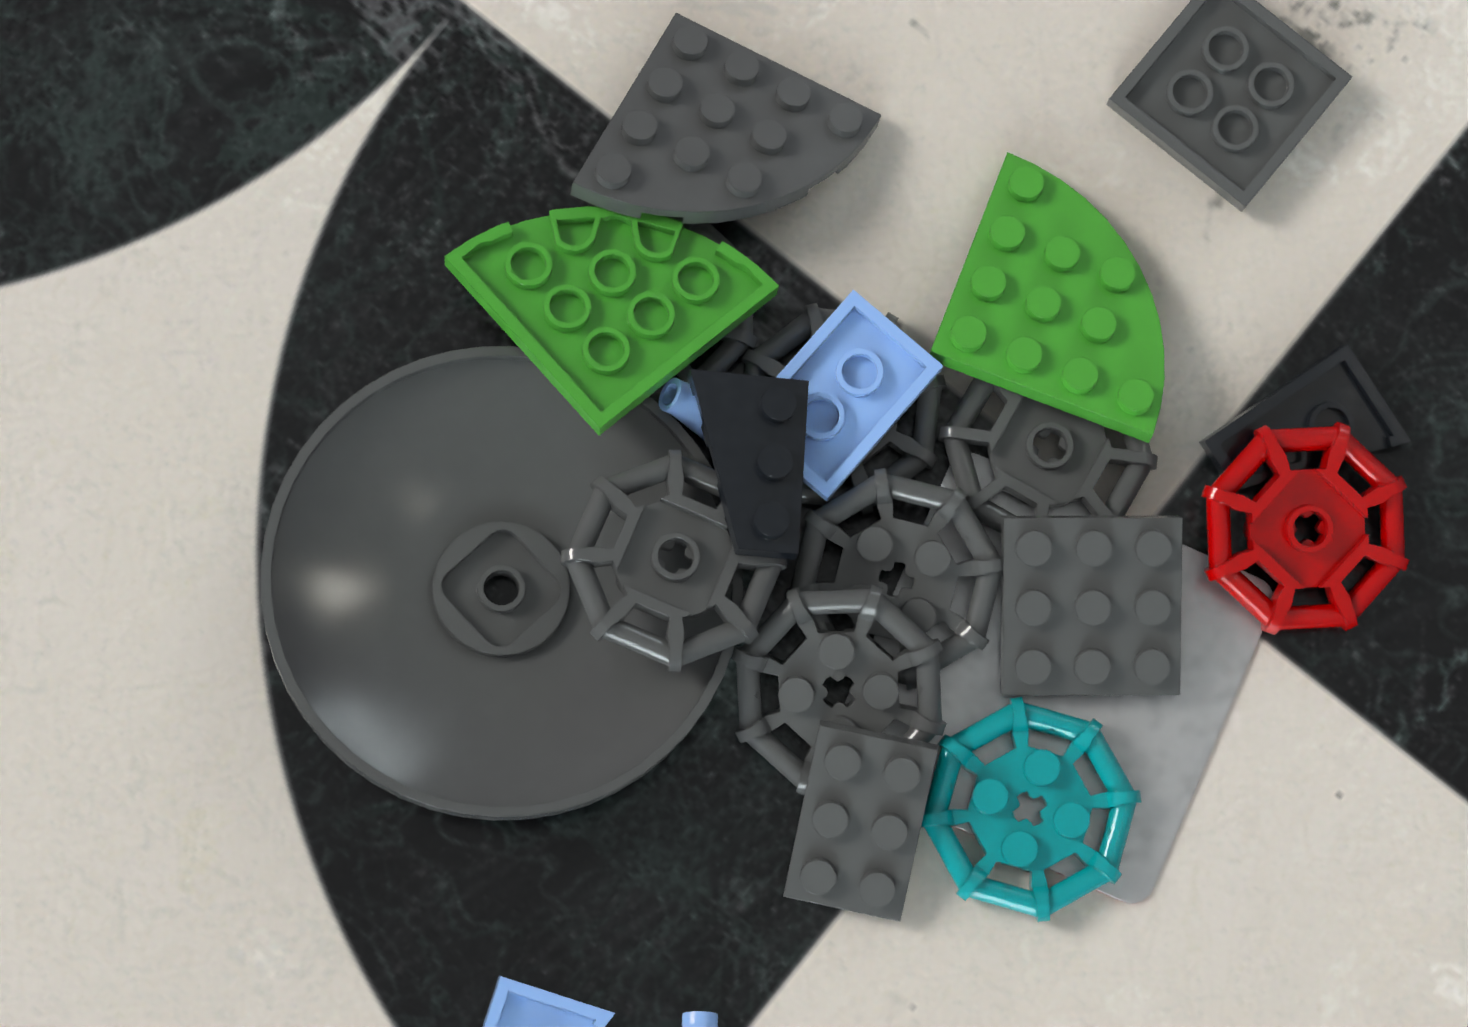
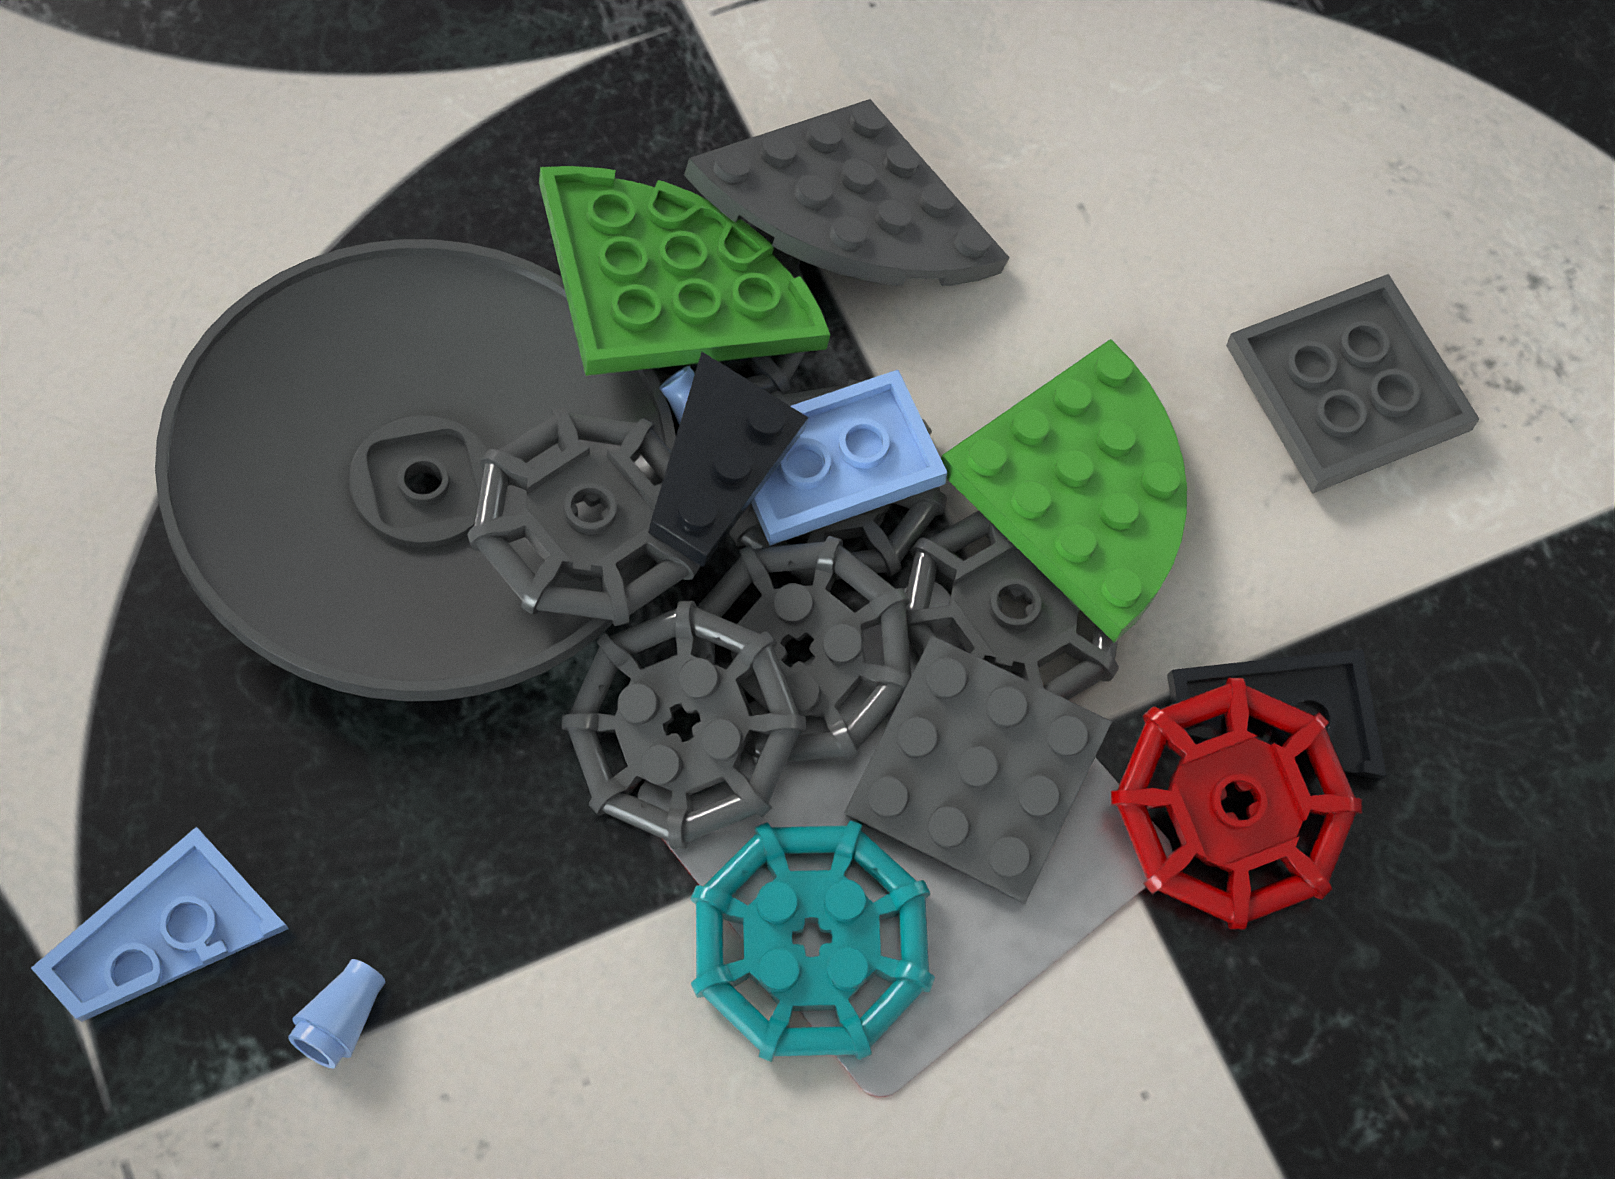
camera: 30 degrees right, 15 degrees down
(860, 820) = (633, 859): dark grey plate -> none

